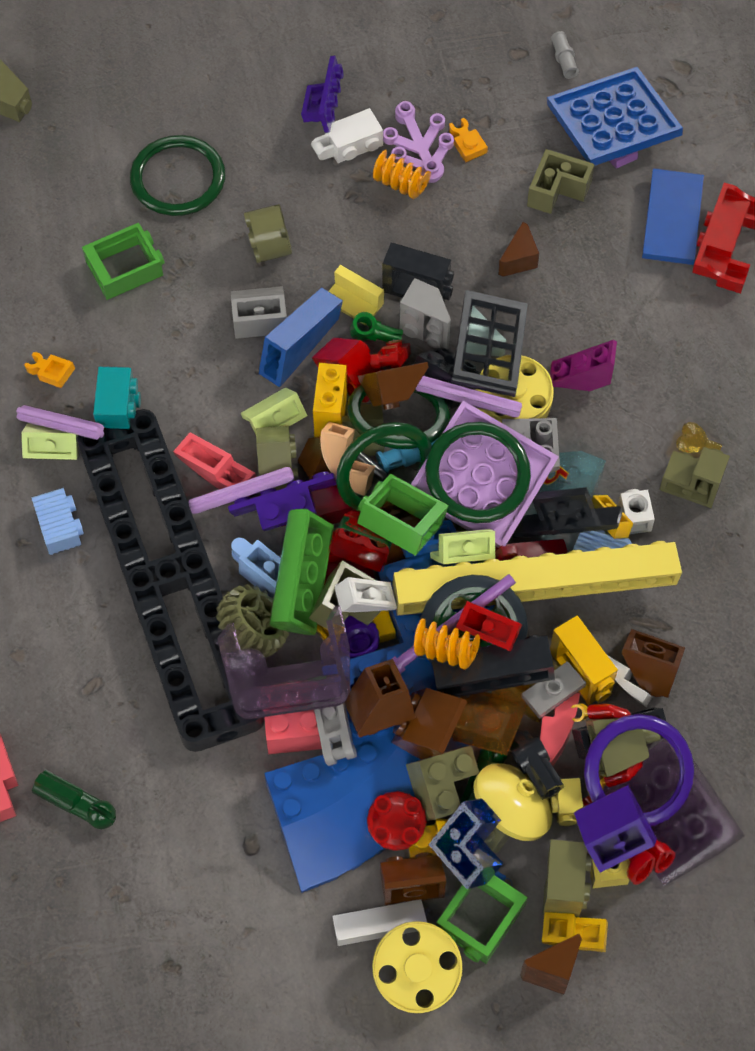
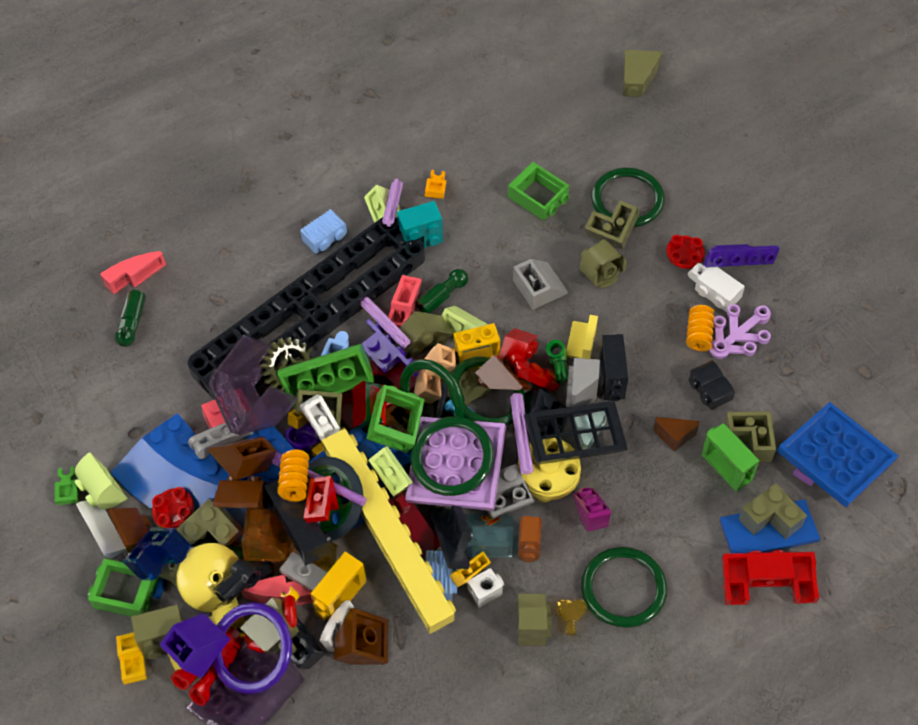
camera: 70 degrees right, 5 degrees down
(217, 419) = (438, 294): none -> dark green piece
(226, 199) = (614, 229): none -> olive brick
(286, 148) = (685, 251): none -> red dish
(298, 335) = (530, 314): blue slope -> none
(307, 951) = (66, 491): none -> bright green plate
(322, 902) = (98, 482): none -> yellowish green brick
(417, 967) = (68, 557): light yellow piece -> none
(468, 143) = (759, 365): light orange plate -> none
(476, 195) = (711, 385): none -> black brick
(552, 966) = (92, 649): reddish brown slope -> none
(564, 55) = (879, 401): light grey pin -> none
(595, 197) = (729, 457): none -> bright green window
(602, 439) = (529, 538): none -> dark orange brick
(662, 197) = (775, 508): none -> olive brick
(676, 415) = (620, 621): none -> dark green wedge

